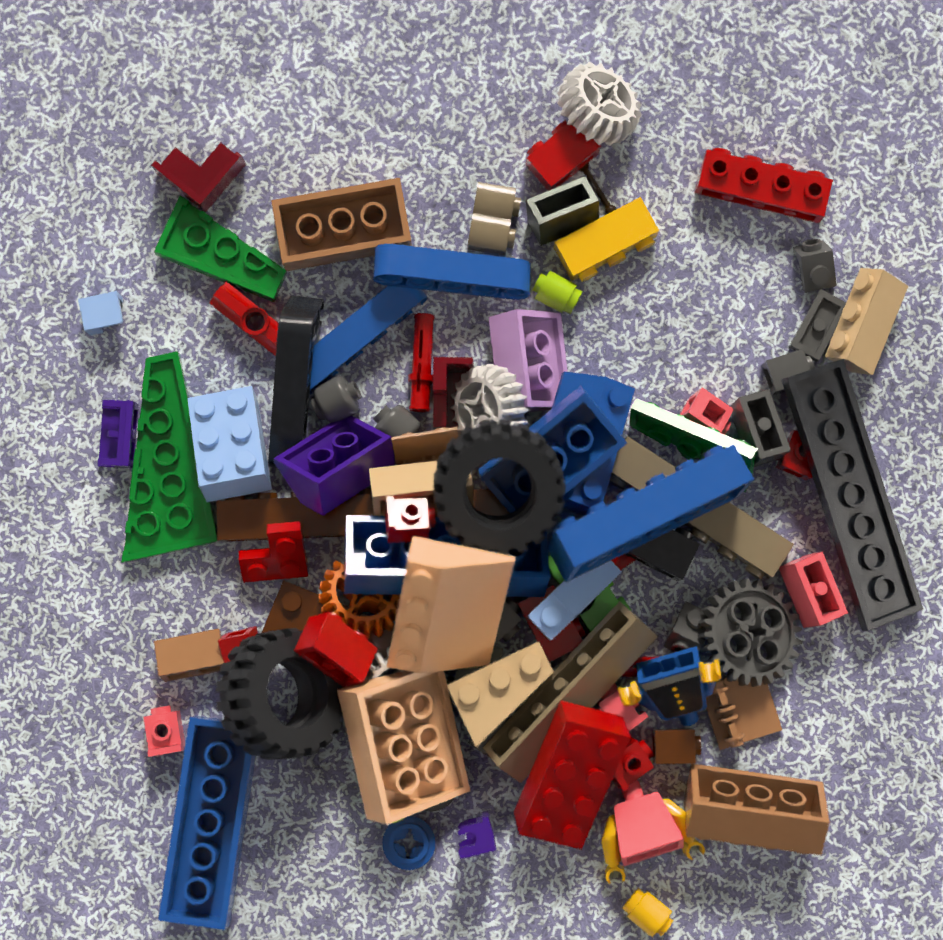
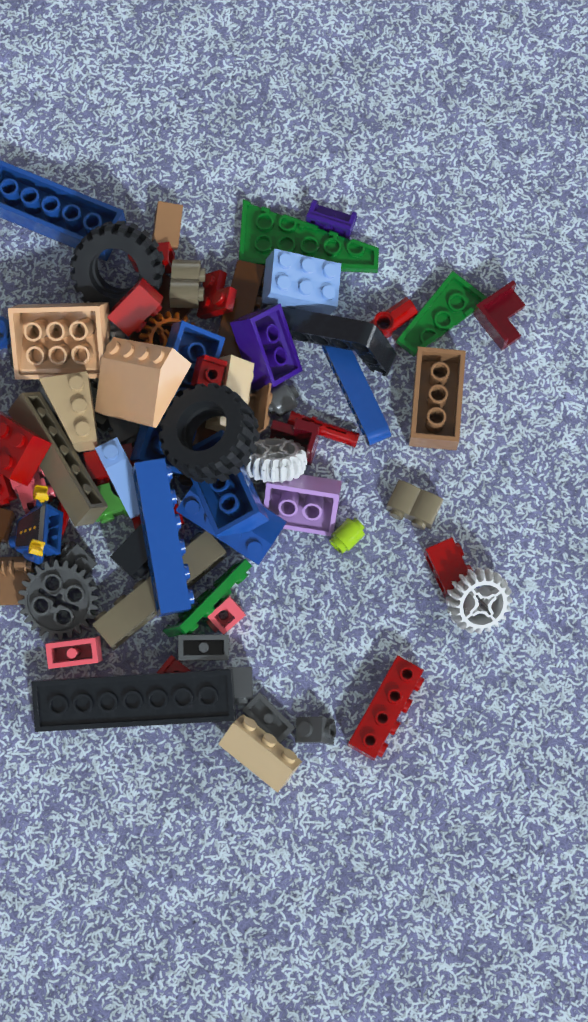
camera: 105 degrees right, 10 degrees down
(101, 312) = (419, 226): light blue panel -> none
(173, 741) = (127, 203): coral brick -> none
(273, 598) = (186, 284): none -> dark tan brick
(336, 399) = (313, 363): dark grey head -> none
(452, 271) = (381, 463): blue beam -> none
(562, 210) = (405, 553): pearl dark grey piece -> none
(606, 240) = (375, 581): yellow brick -> none
(608, 207) = (399, 593): dark brown hinge -> none

